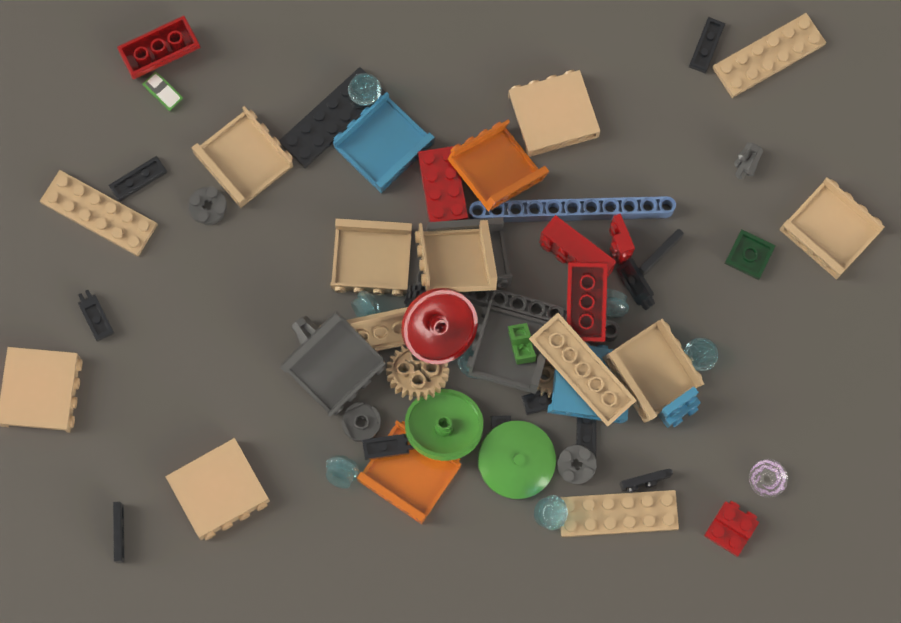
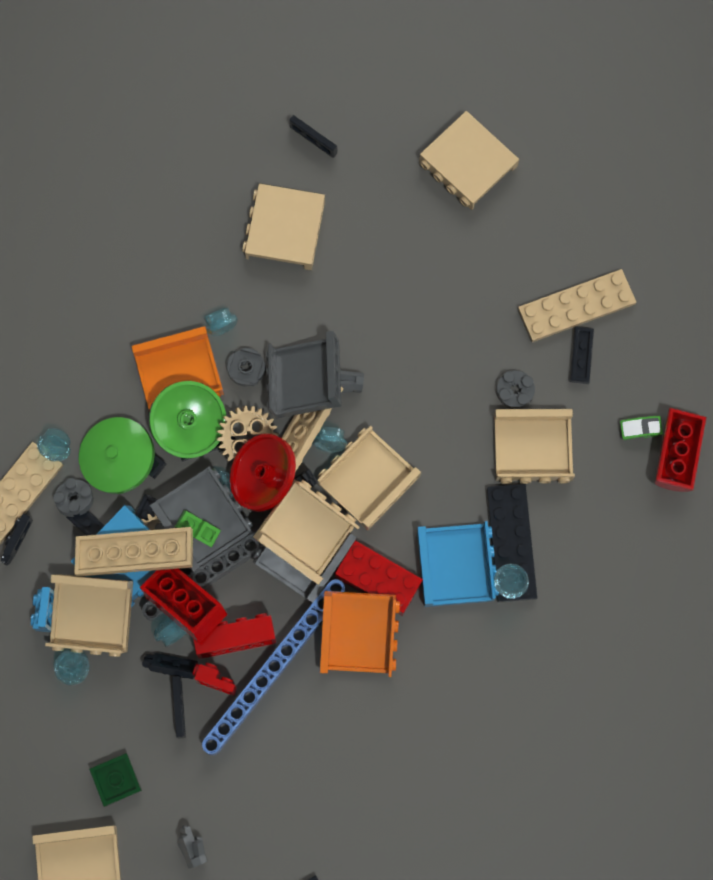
camera: 130 degrees right, 0 degrees up
(95, 316) = (494, 241): black hinge -> none
(386, 446) = (210, 365): black hinge -> none
(554, 112) = (368, 721): tan panel -> none

